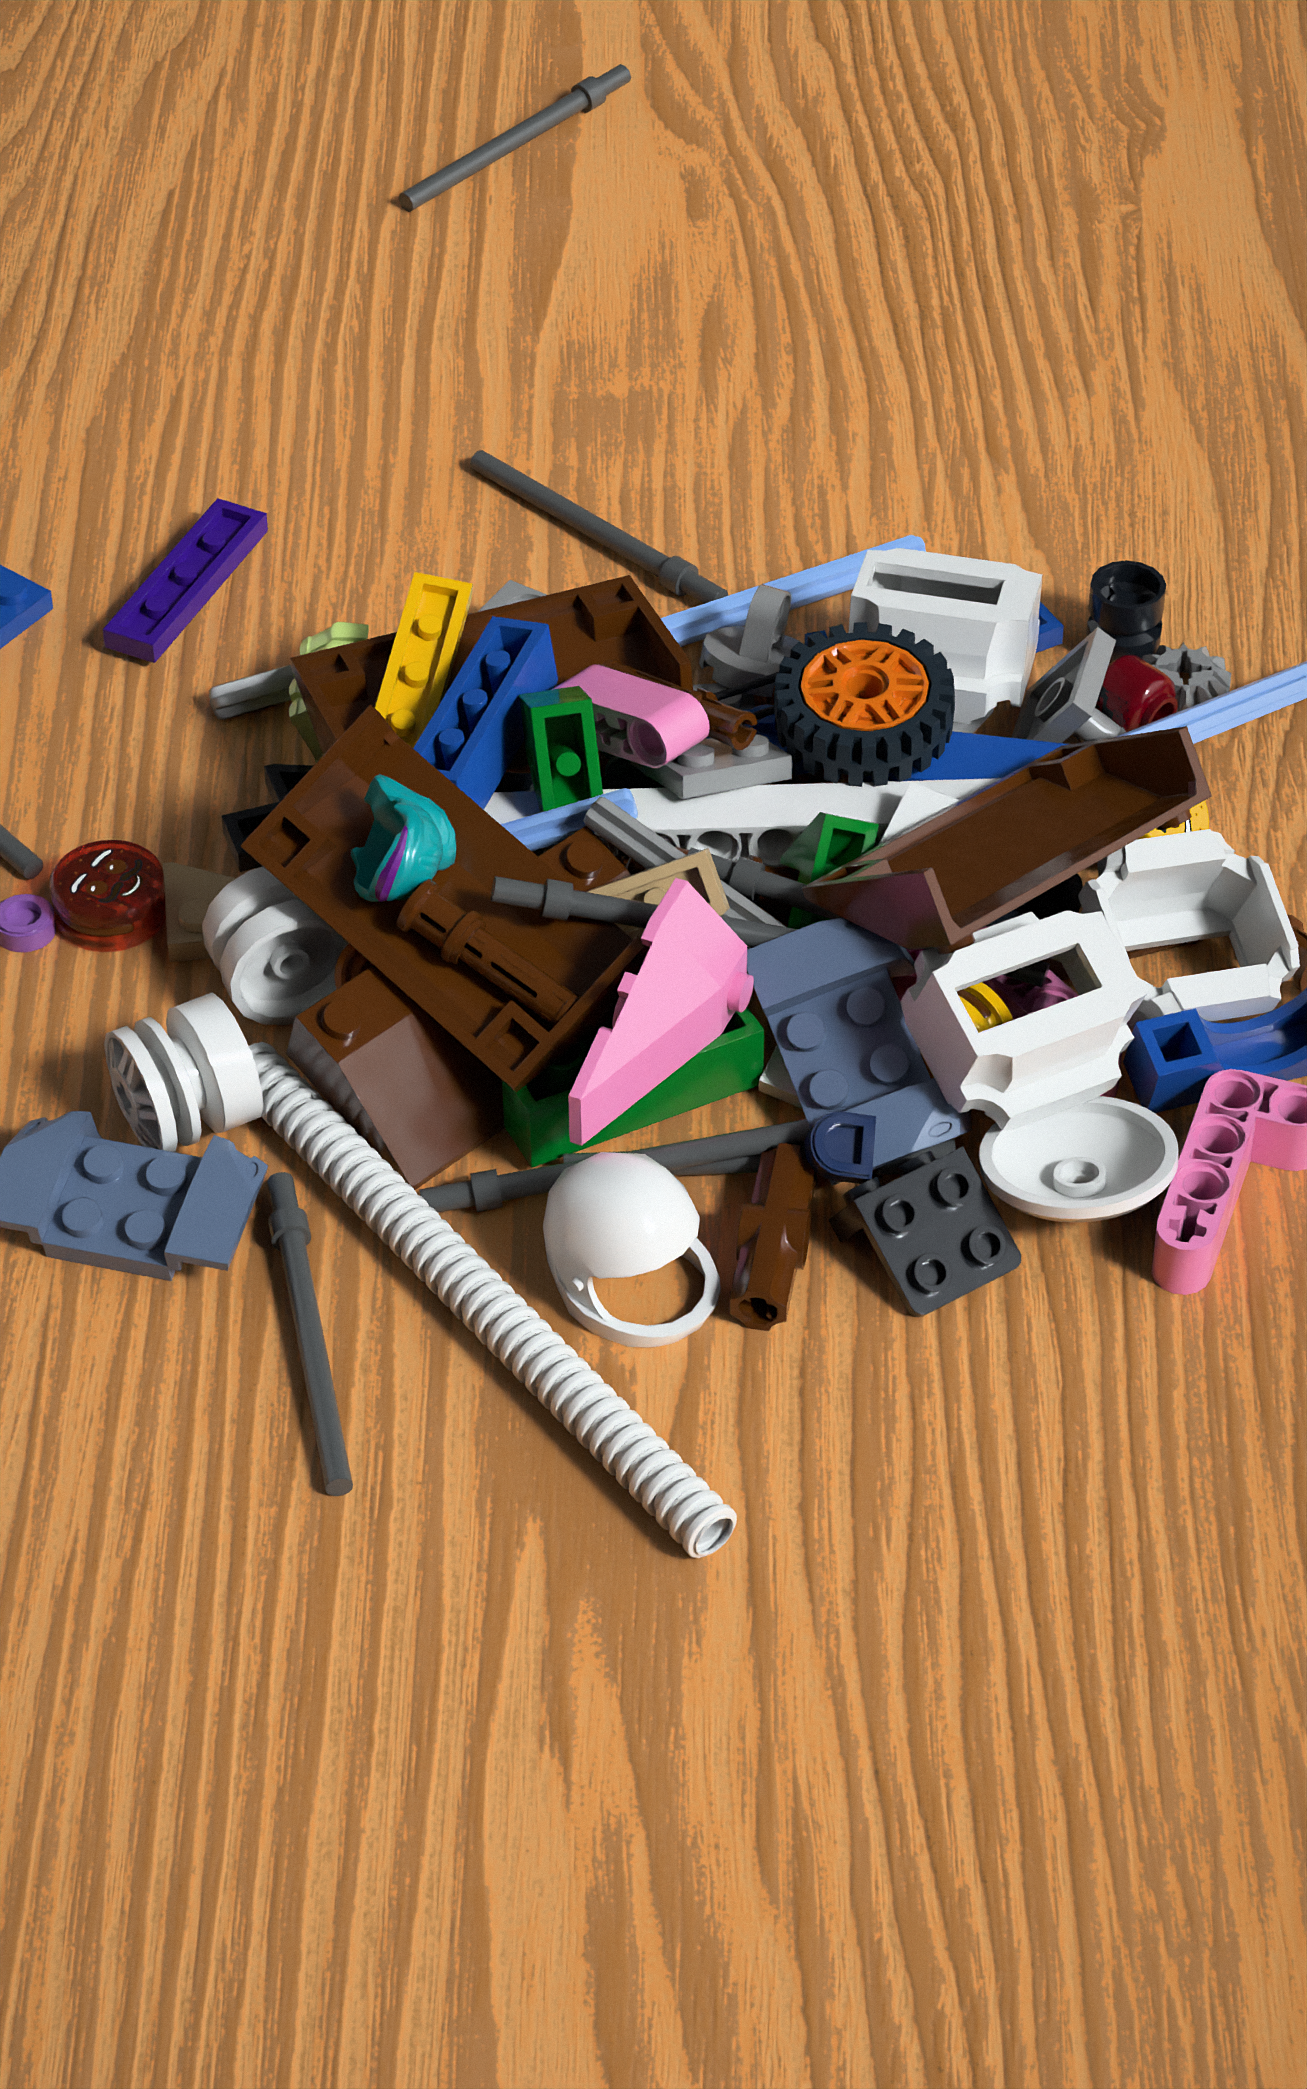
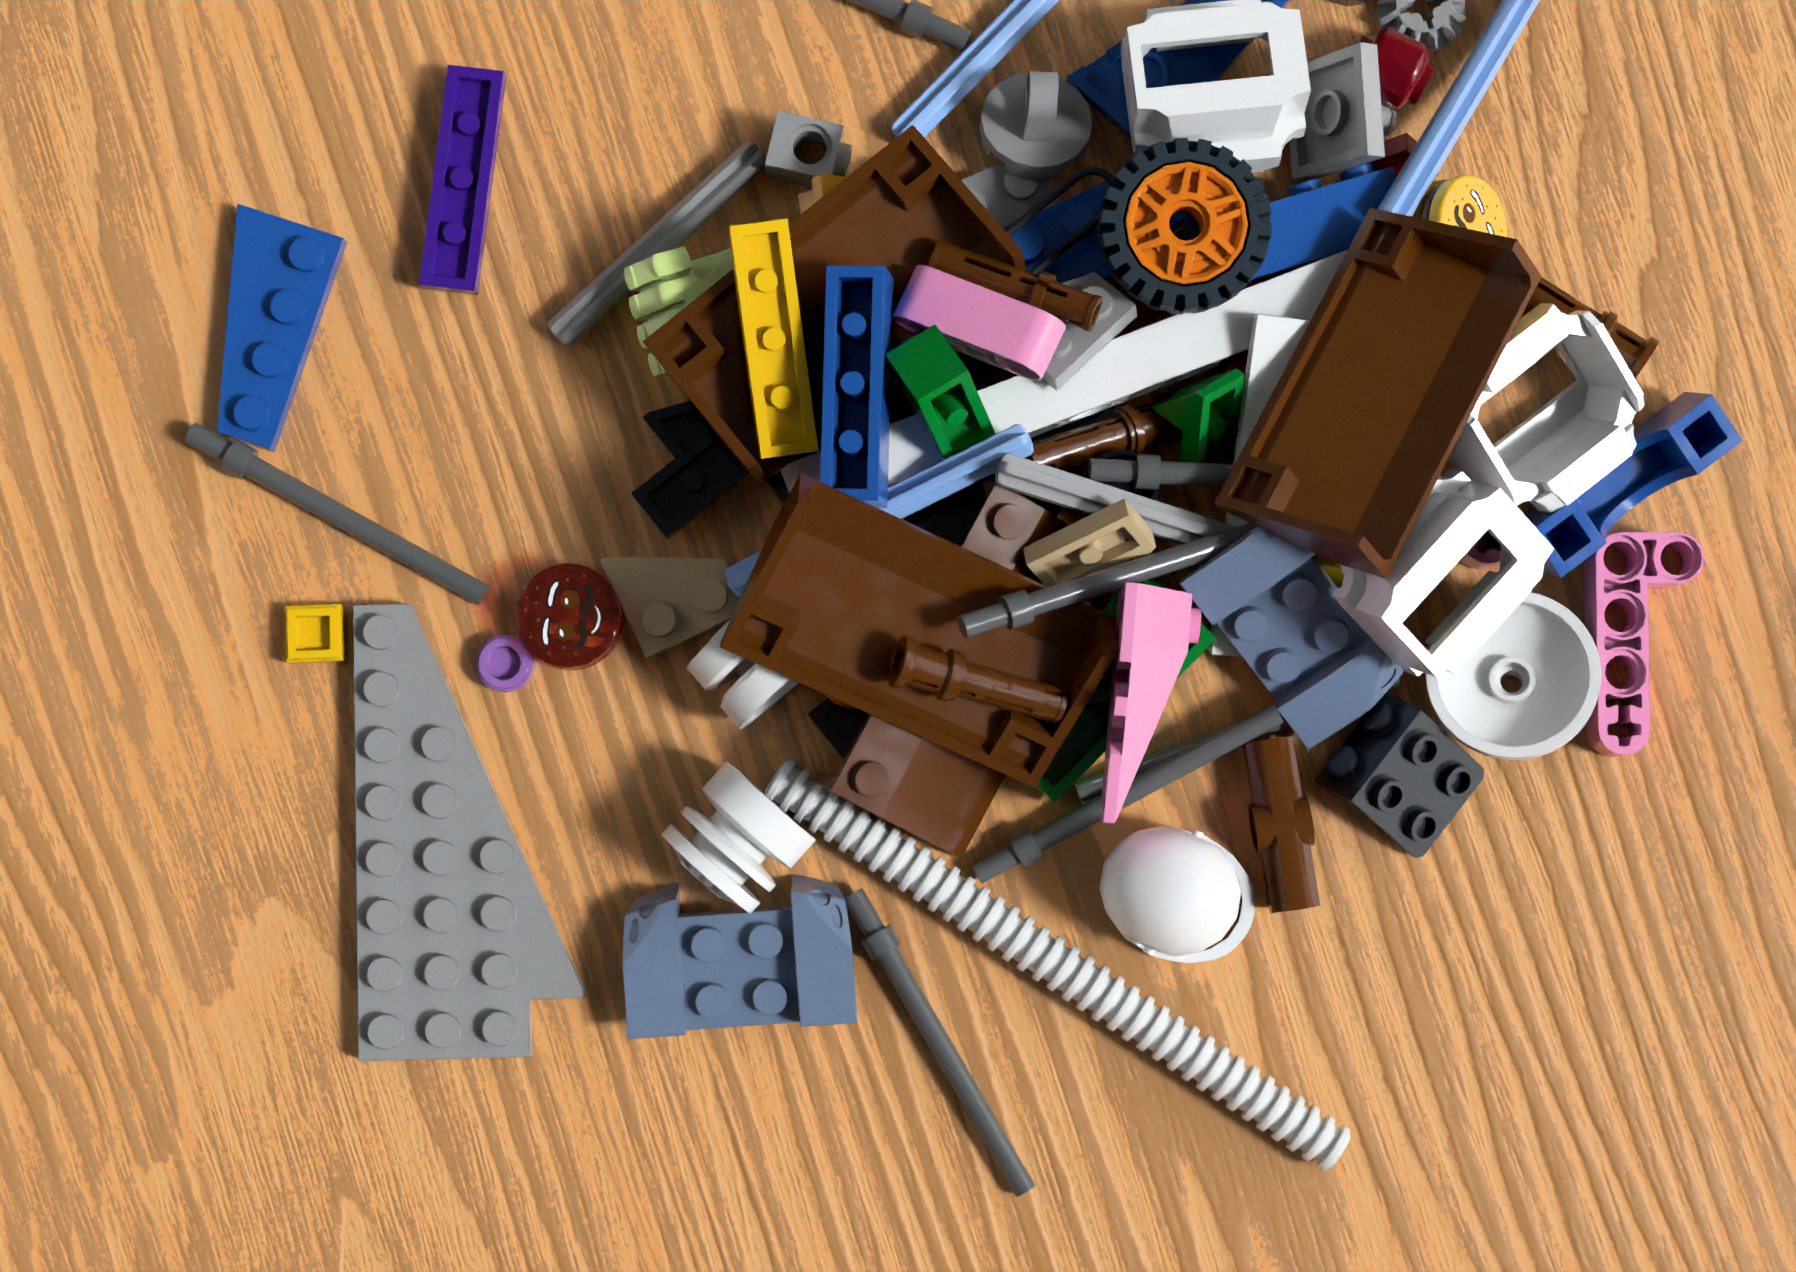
camera: 15 degrees left, 40 degrees up
(405, 844) = (866, 611): teal hair -> none
(842, 1147) = (1316, 729): dark blue tile -> none

